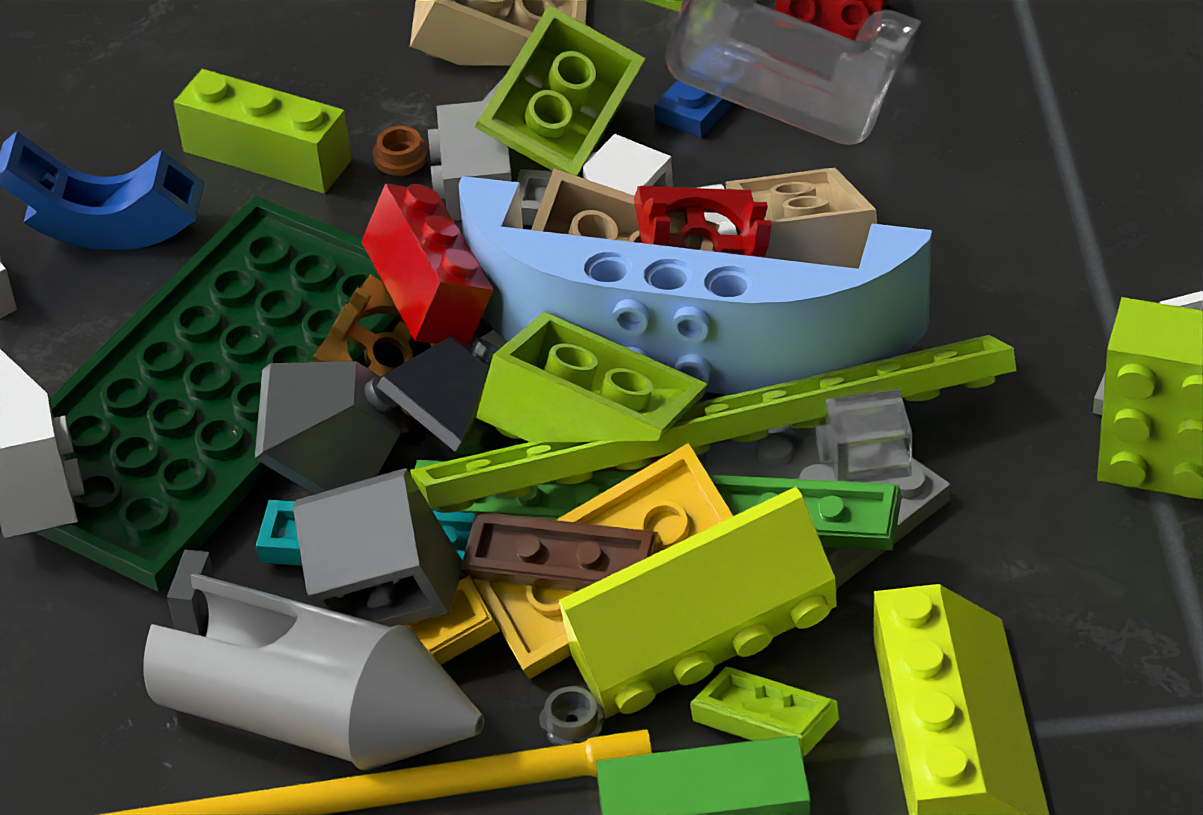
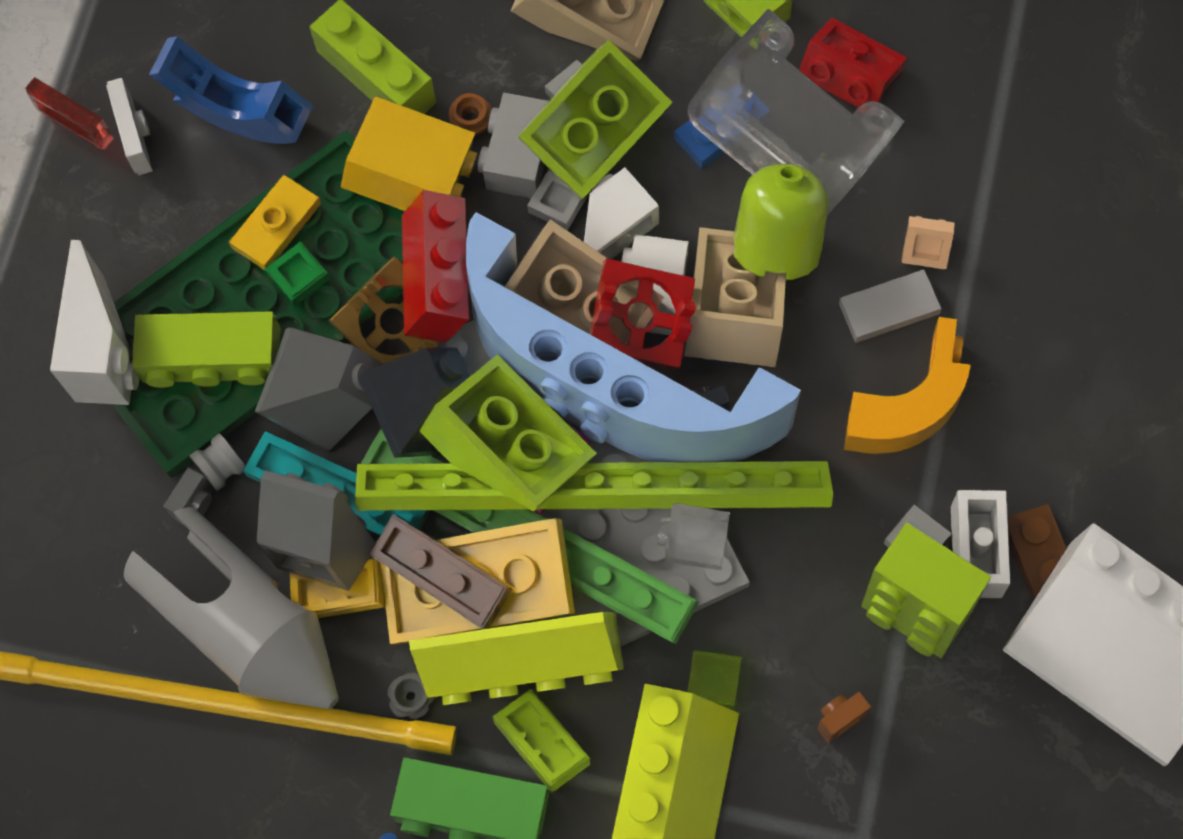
camera: 20 degrees right, 25 degrees up
(163, 424) = (205, 348): none -> lime brick
(201, 295) = (275, 222): none -> yellow plate
(226, 540) = (218, 462): none -> light grey wheel
(249, 335) = (297, 273): none -> green tile
(333, 188) = (404, 153): none -> yellow brick
(824, 123) = (781, 221): none -> lime cylinder
(960, 574) = (715, 677): none -> clear neon green plate
(986, 194) = (889, 306): none -> light grey tile
(1002, 121) = (928, 242): none -> light nougat tile
(1063, 280) = (905, 420): none -> light orange arch
(1133, 576) = (842, 715): none -> dark orange plate

